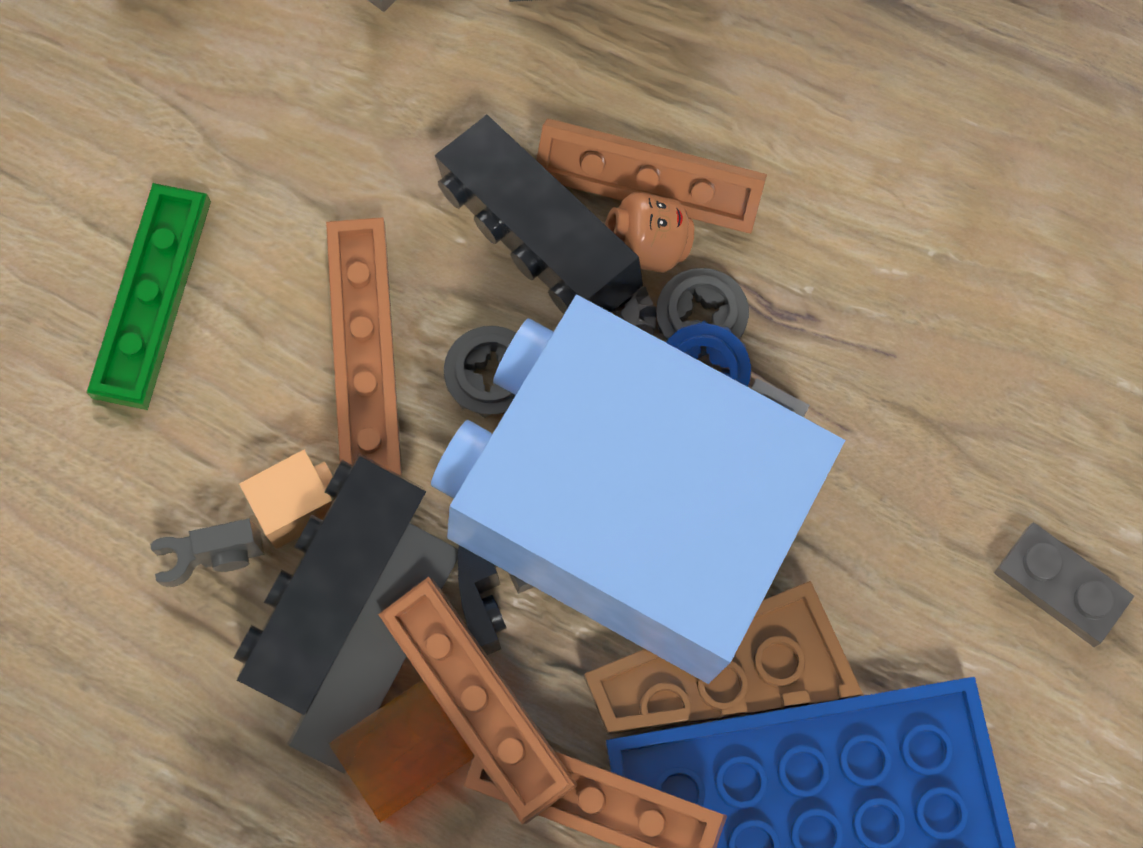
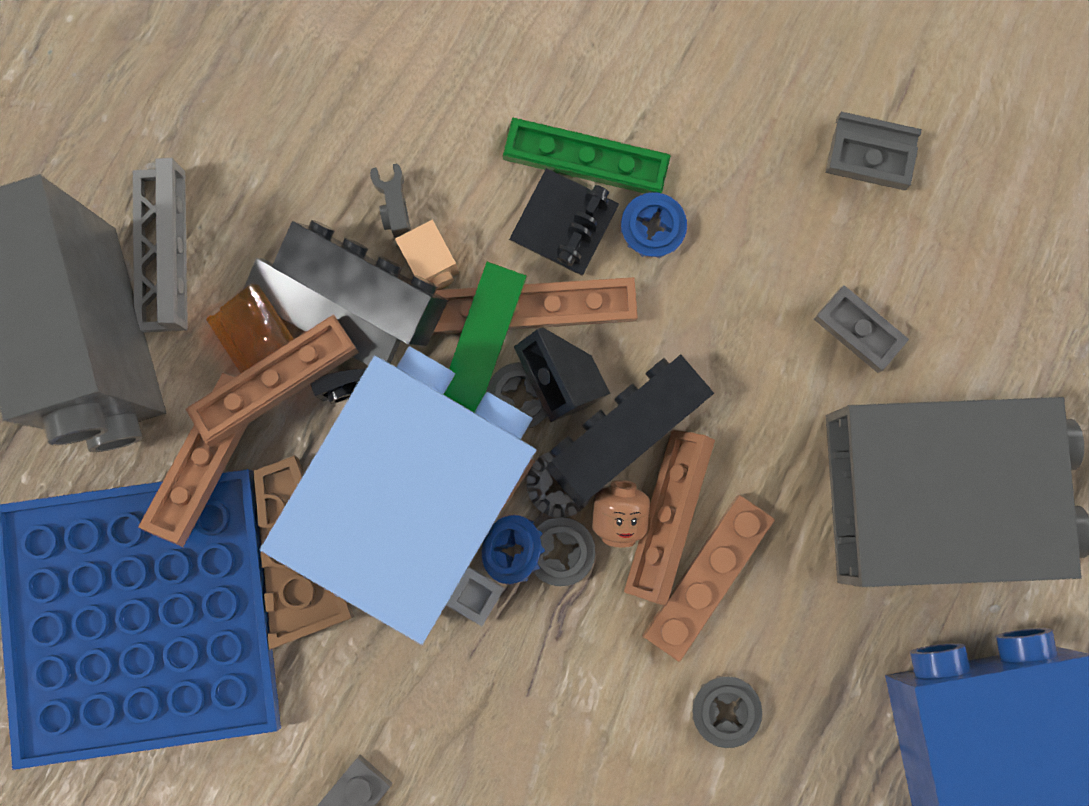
camera: 90 degrees right, 10 degrees up
(241, 184) = (671, 219): none -> blue gear
(242, 320) = (564, 221): none -> black hinge
(389, 406) = (484, 334): none -> green tile
(462, 309) = (560, 374): none -> black slope
(725, 132) = (708, 577): none -> nougat plate
(891, 87) = (747, 712): none -> dark grey gear

